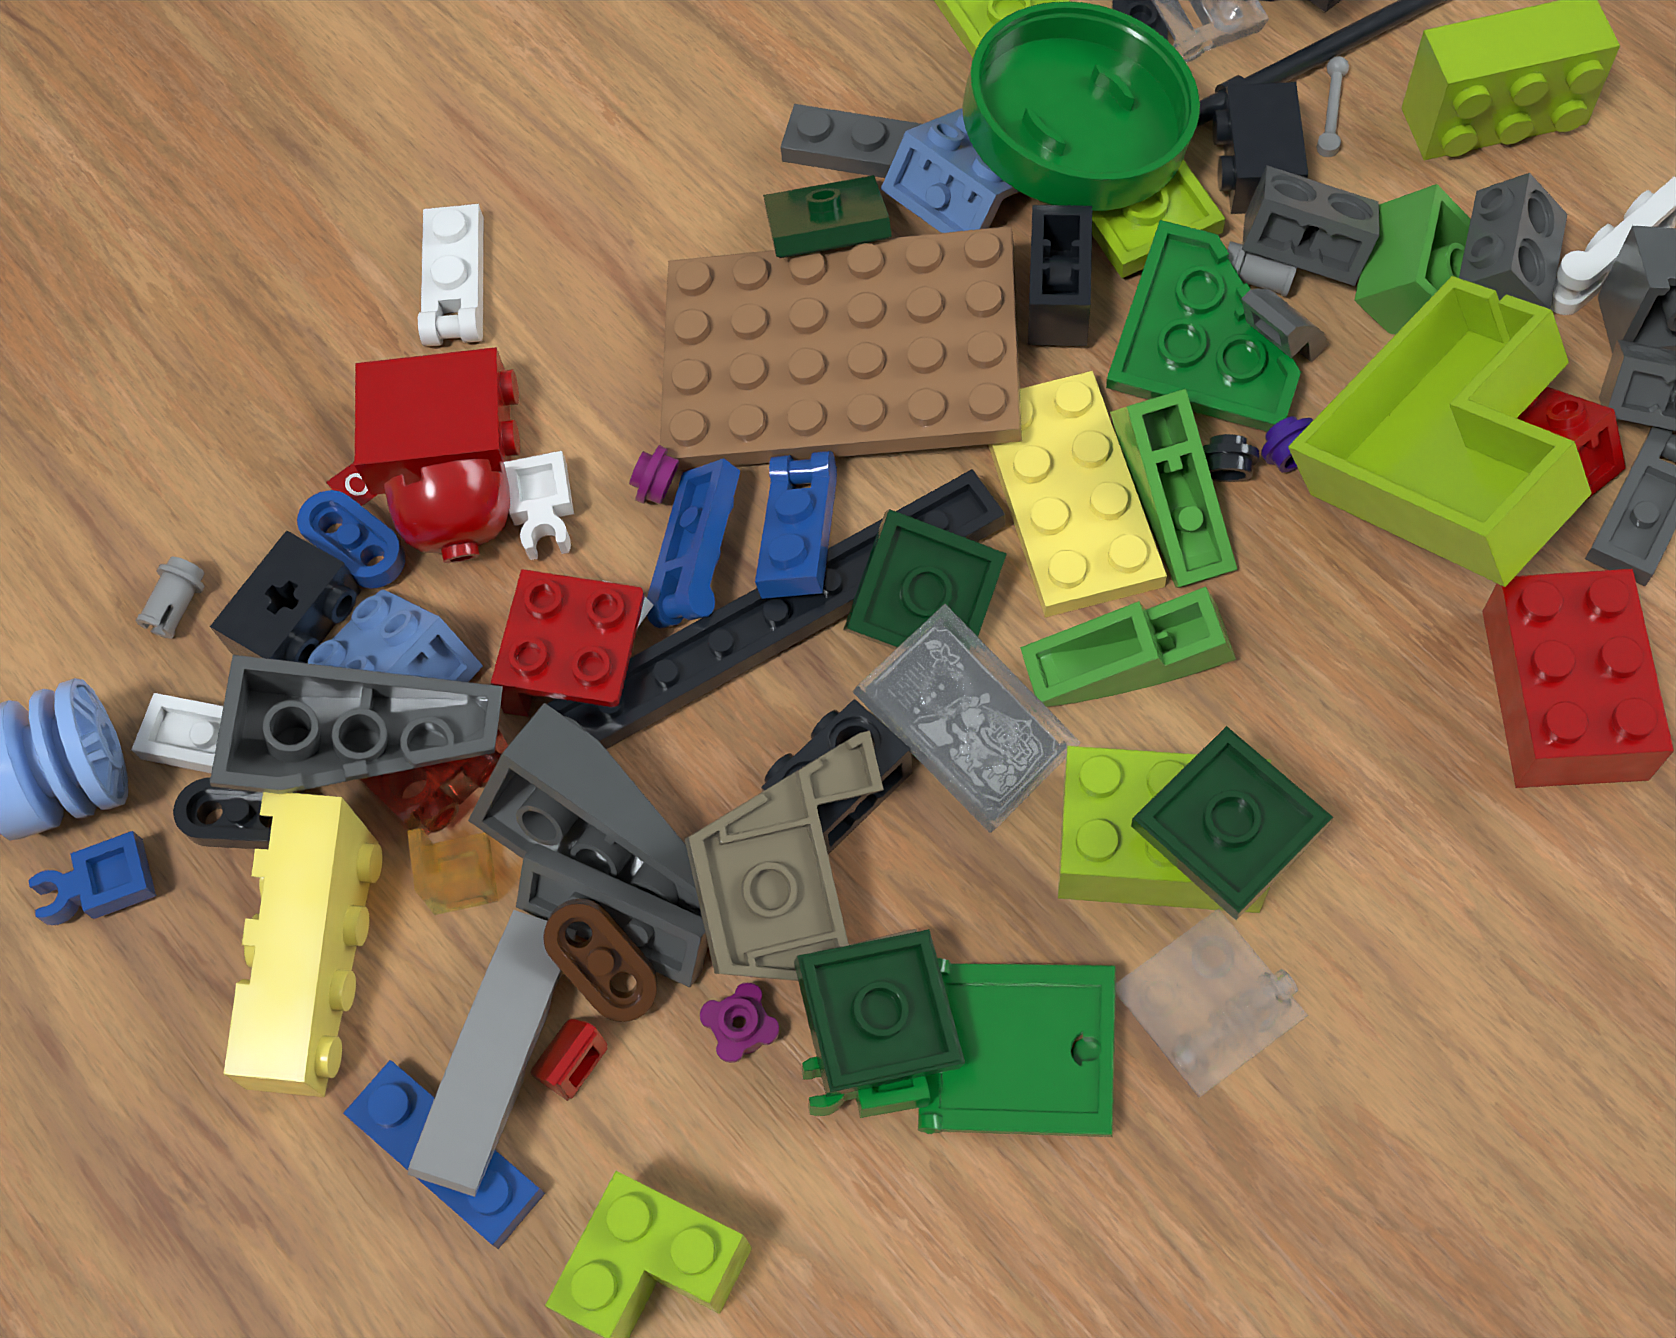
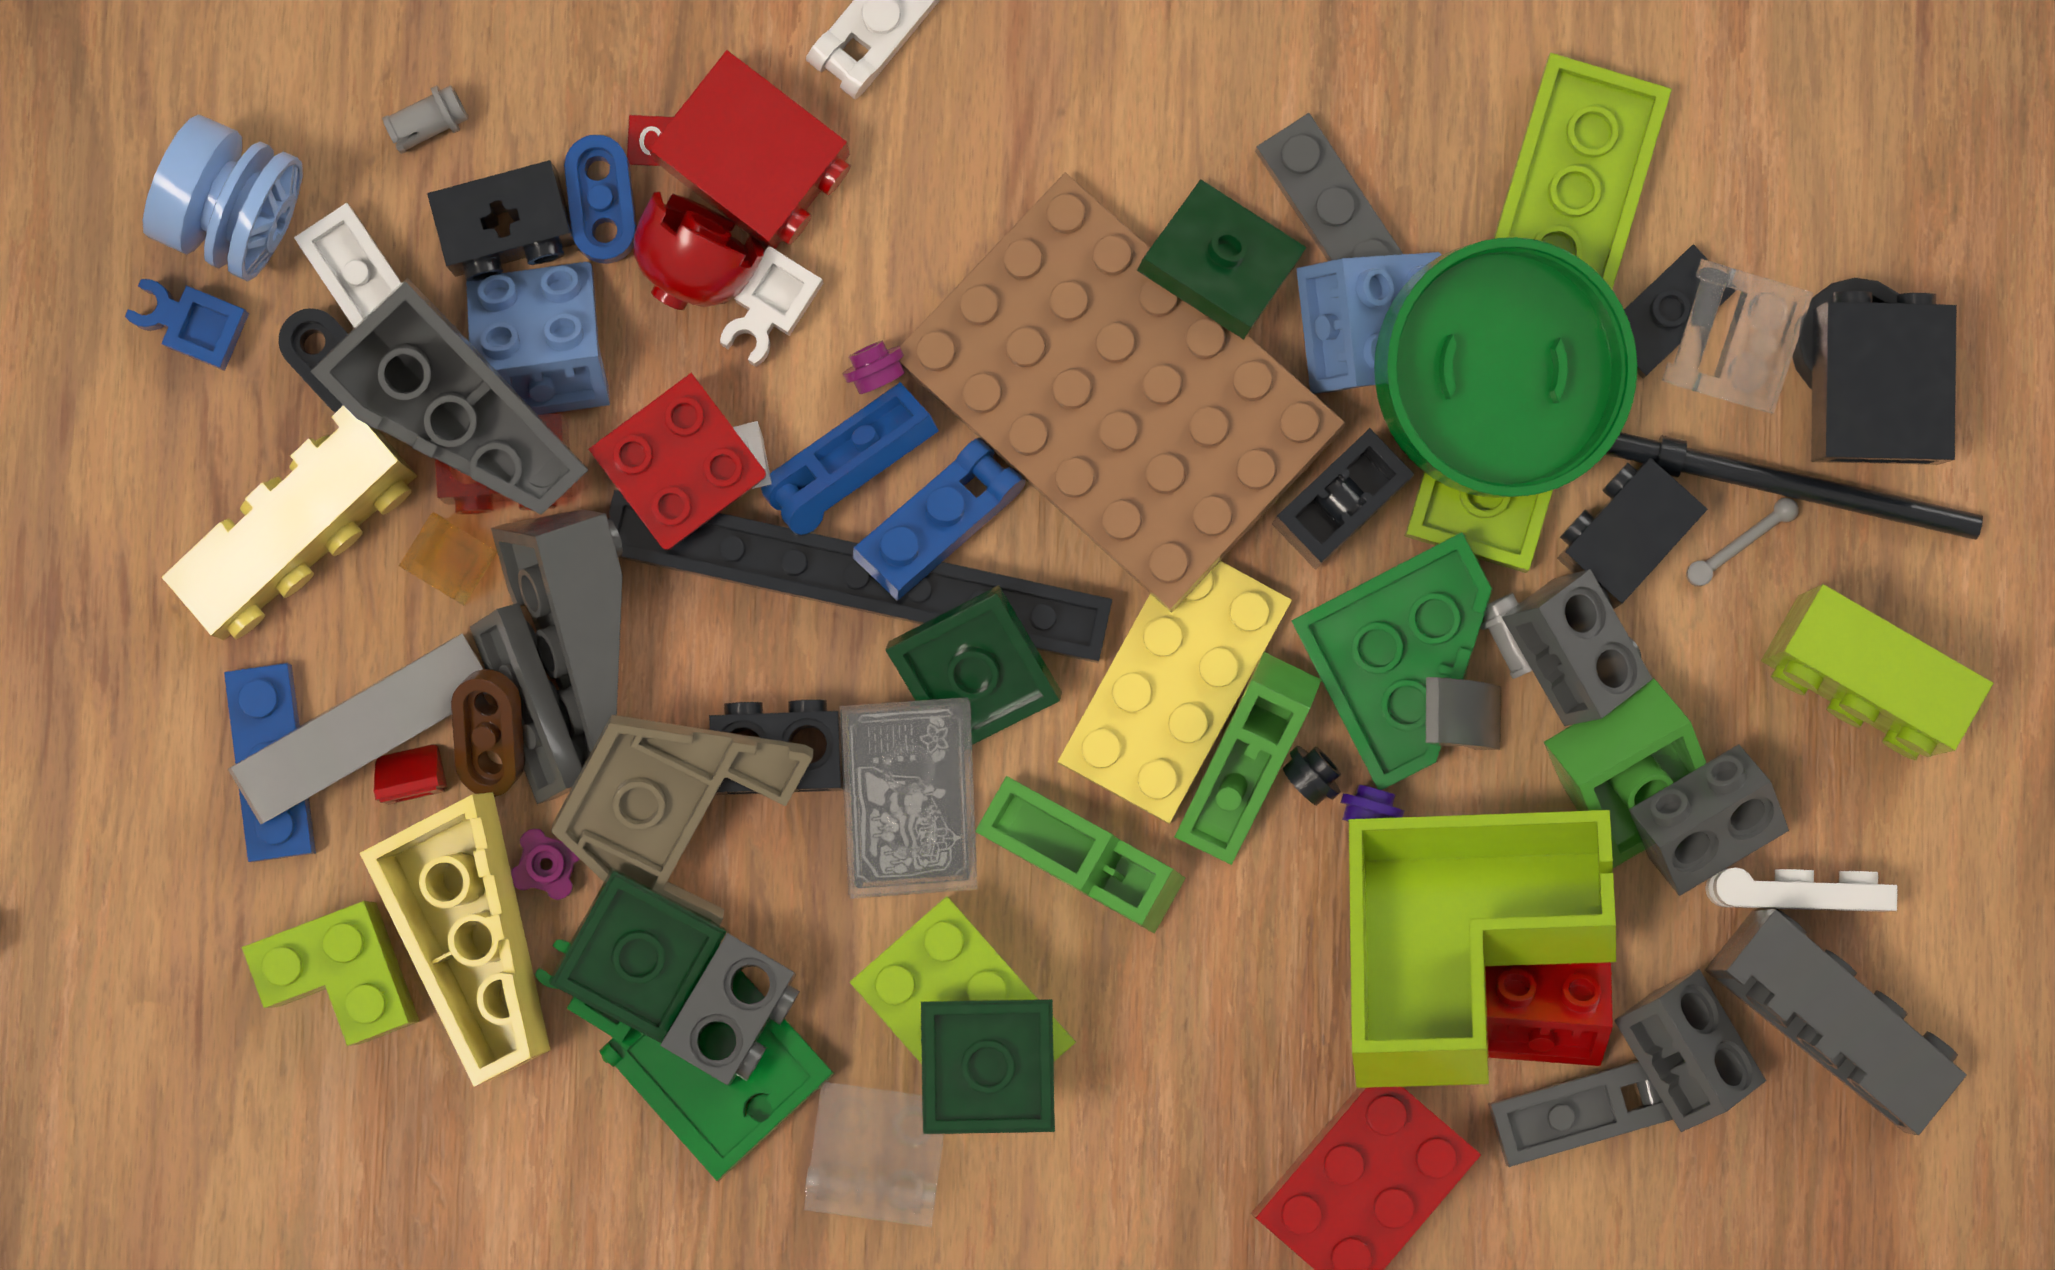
camera: 35 degrees right, 20 degrees up
(709, 1118) = (464, 931): none -> light yellow wedge
(979, 987) = (716, 1002): none -> dark grey brick

